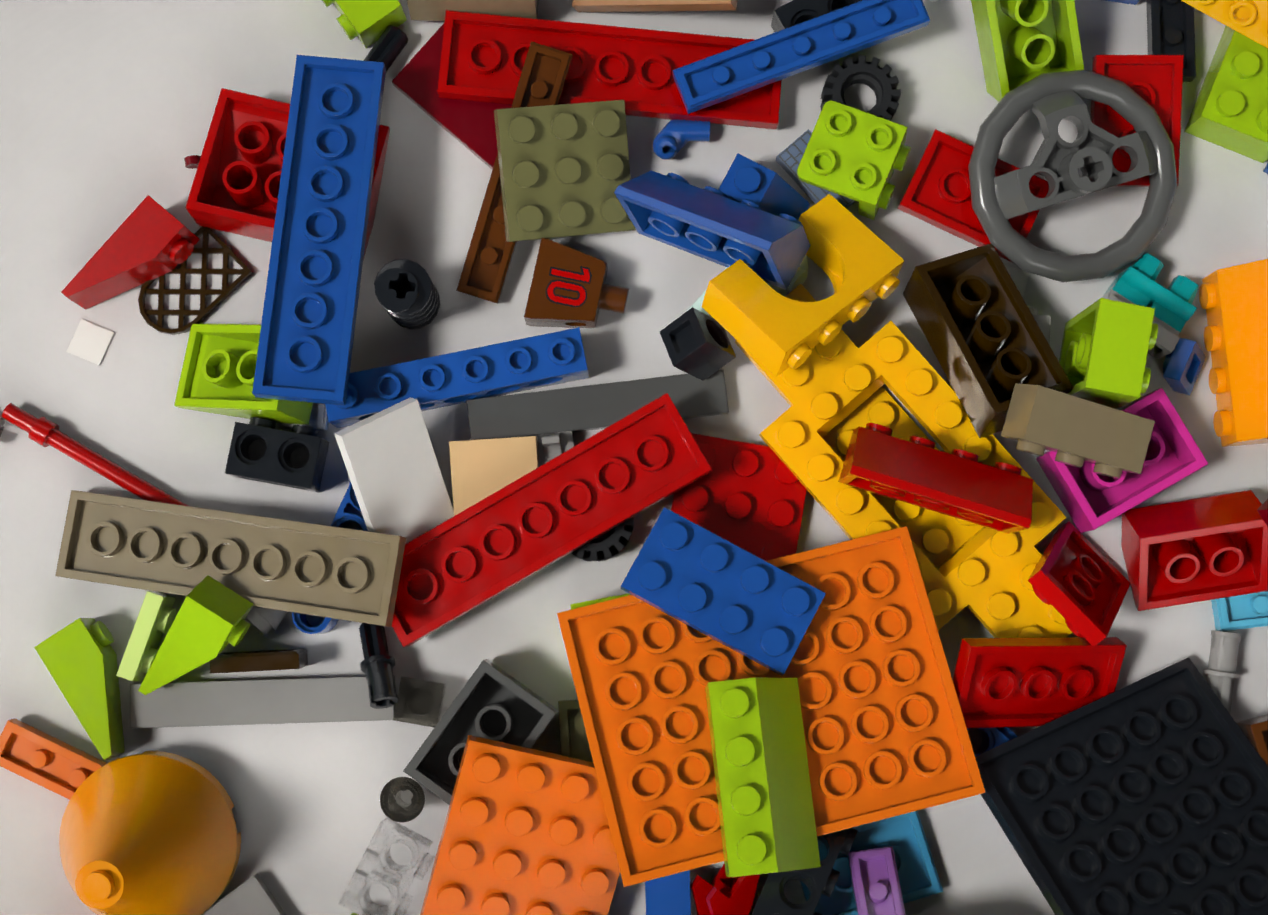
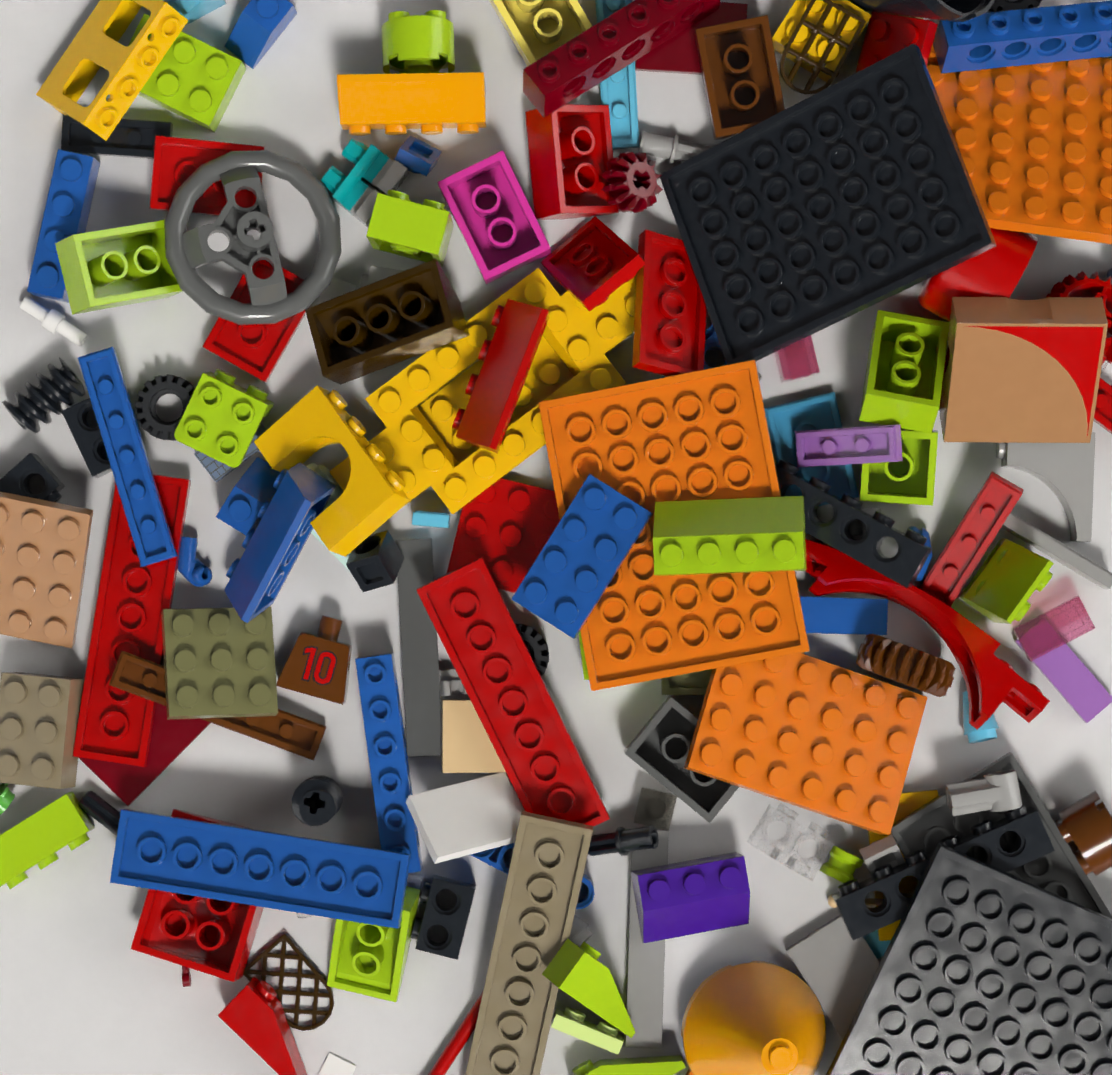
camera: 85 degrees left, 5 degrees up
(259, 660) = (613, 938): dark brown tile -> none
(315, 754) = (691, 896): none -> dark purple slope
(394, 806) = (736, 834): clear smoke cone -> none
(751, 409) = (431, 519): none -> medium azure tile
(980, 842) = (797, 360): none -> clear pink brick
(1077, 430) = (471, 261): dark tan brick -> none
(1179, 624) = (631, 182): none -> dark red gear

